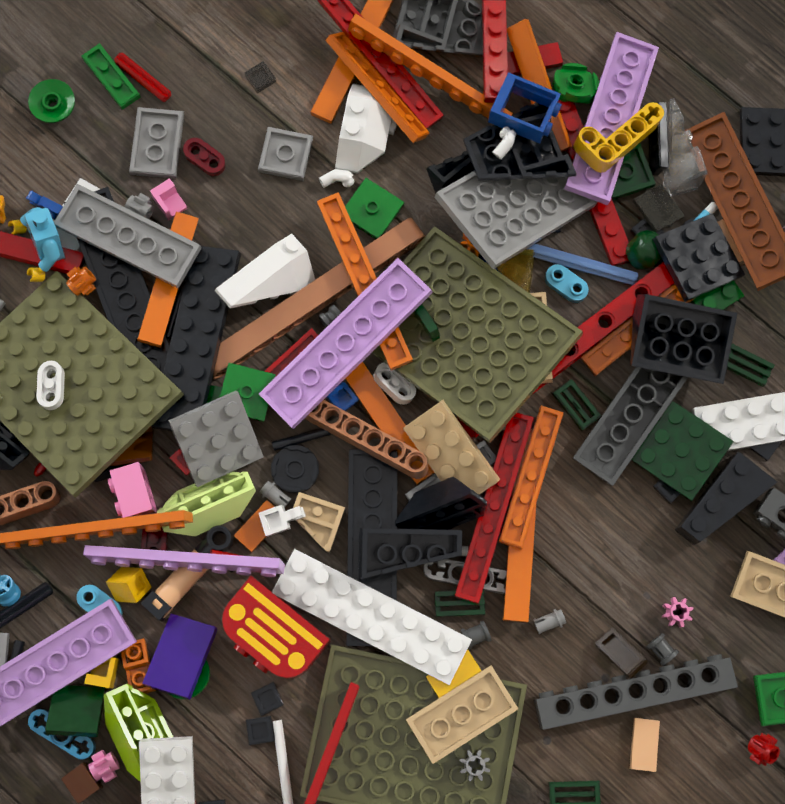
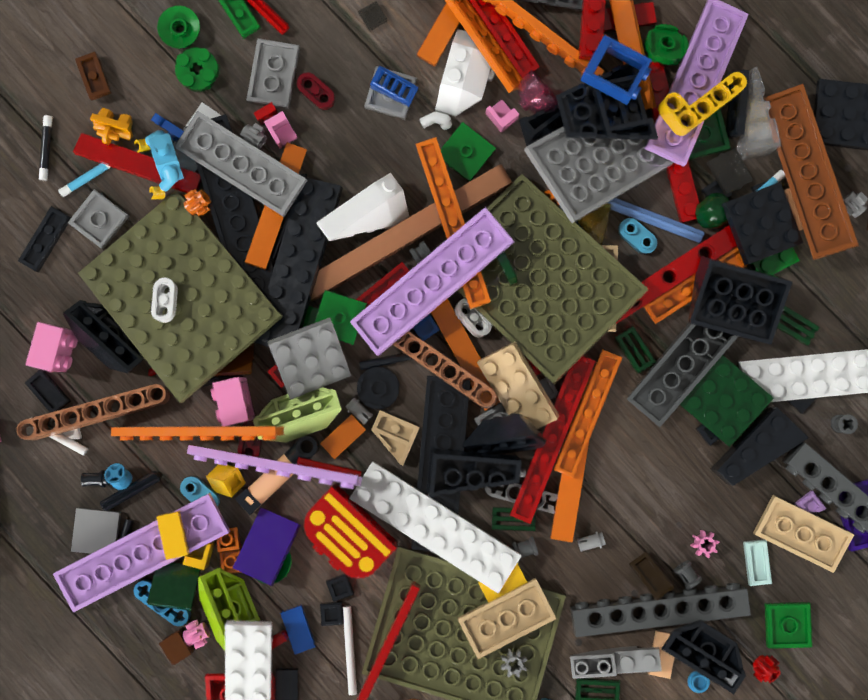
camera: 10 degrees right, 10 degrees up
(71, 649) = (172, 535): none -> yellow tile
(75, 131) = (203, 58): none -> green plate
(150, 182) = (265, 113): none -> red plate
(201, 763) = (279, 638): none -> red tile
(222, 752) = (298, 629): none -> blue tile
(277, 519) = (359, 434): white plate -> none
(291, 138) = (381, 71): none -> blue slope
(407, 168) = (502, 115): none -> bright pink panel
(440, 142) = (535, 94): none -> clear pink cylinder
(508, 137) = (597, 102): white arm -> none
(591, 757) = (615, 661): none -> light grey slope
(688, 773) = (698, 682): none -> dark azure plate
(694, 734) = (708, 654): none -> black wedge
(739, 630) = (757, 562): none -> light aqua tile

